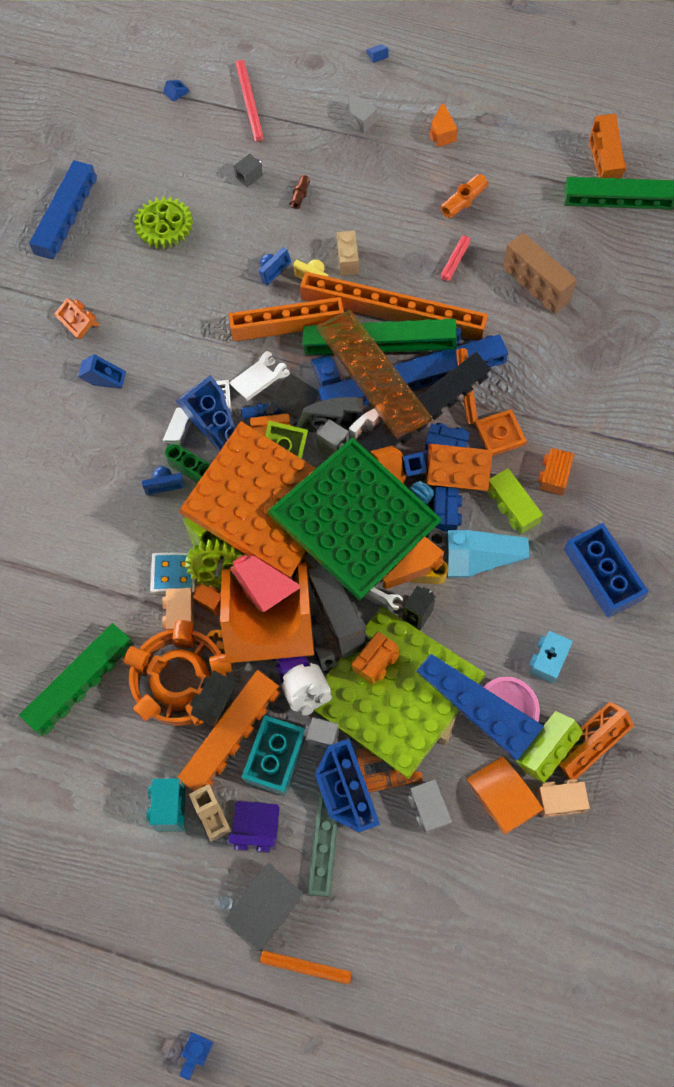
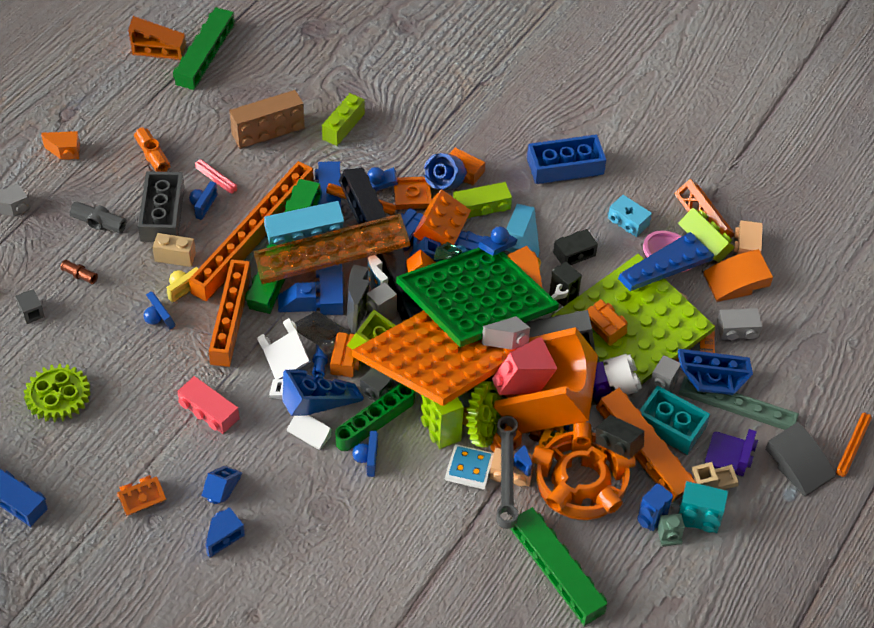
camera: 80 degrees left, 15 degrees down
(53, 389) = (223, 531): none -> blue slope
(139, 779) = (670, 529): none -> sand green brick
(155, 756) = (653, 505): none -> blue brick
(158, 604) = (507, 476): none -> dark grey piece
(172, 614) = (522, 461): none -> blue slope
(181, 336) = (208, 405): none -> coral brick
(297, 553) = (506, 334): none -> light grey slope
(366, 183) = (98, 217): none -> dark grey piece
(393, 225) = (161, 205): none -> dark grey brick
(393, 340) = (303, 223): none -> medium azure wedge
(407, 477) = (446, 251): none -> clear green slope
(418, 257) = (203, 200): none -> blue tile
(438, 522) = (498, 242): none -> blue tile
(482, 609) = (575, 247): none -> pearl dark grey brick
(502, 397) = (382, 179): none -> blue tile
(531, 451) = (444, 171): none -> blue brick
(574, 341) = (343, 119): none -> lime brick

